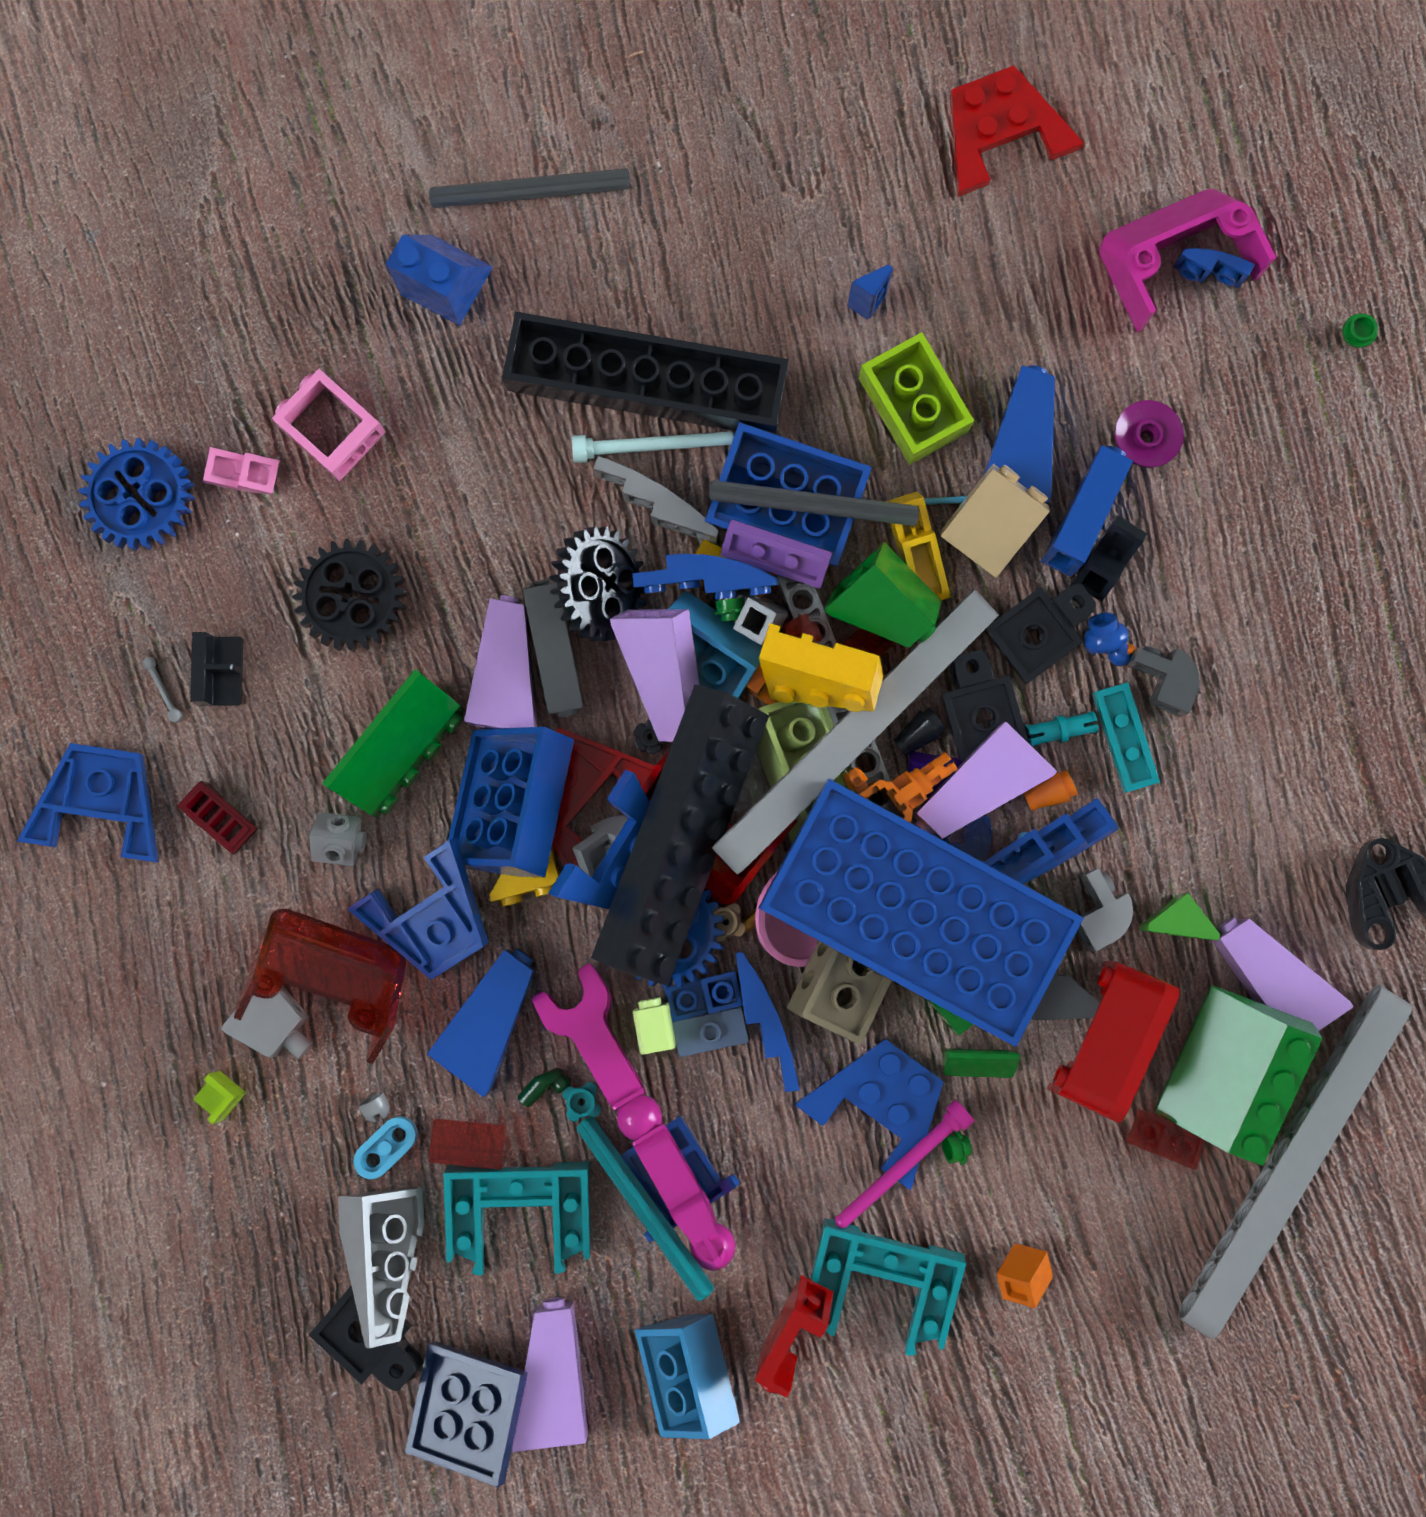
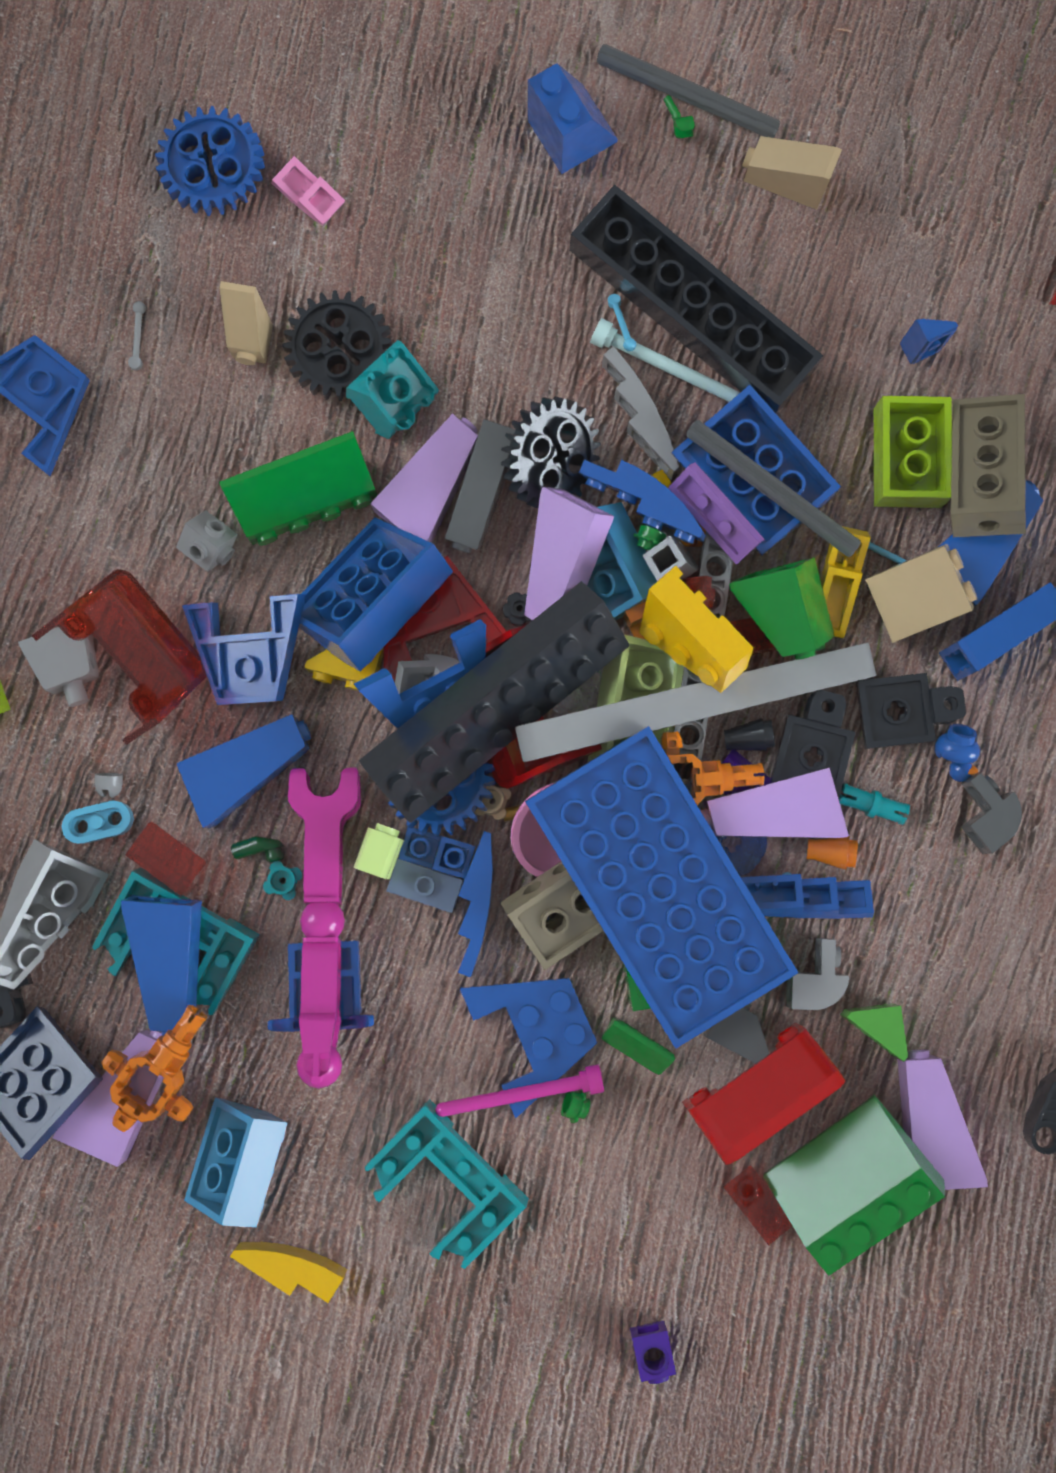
camera: 25 degrees right, 0 degrees up
(194, 797) = (112, 439): dark red slope -> none
(216, 670) = (190, 344): black panel -> none
(258, 625) = (245, 323): none -> tan slope
(353, 446) = (412, 223): bright pink window -> none
(423, 608) = (392, 391): none -> teal slope
(518, 1230) = (165, 954): none -> blue slope
(543, 222) = (682, 125): none -> green hand
(572, 1322) = (164, 1059): none -> orange piece
(575, 414) = (614, 302): none -> medium azure hinge
(645, 1209) = (282, 1001): teal axle -> none
(663, 206) = (791, 168): none -> tan slope
(790, 1438) = (289, 1265): none -> yellow slope
(805, 1309) = (368, 1167): red panel -> none
(989, 374) = (988, 488): none -> dark tan brick
(1024, 1275) = (570, 1248): orange panel -> none
(1109, 558) = (1001, 682): black brick -> none
(1125, 737) = (924, 843): teal plate -> none
(1138, 1312) = (653, 1336): none -> dark purple brick
(1294, 1162) = (858, 1289): light grey beam -> none

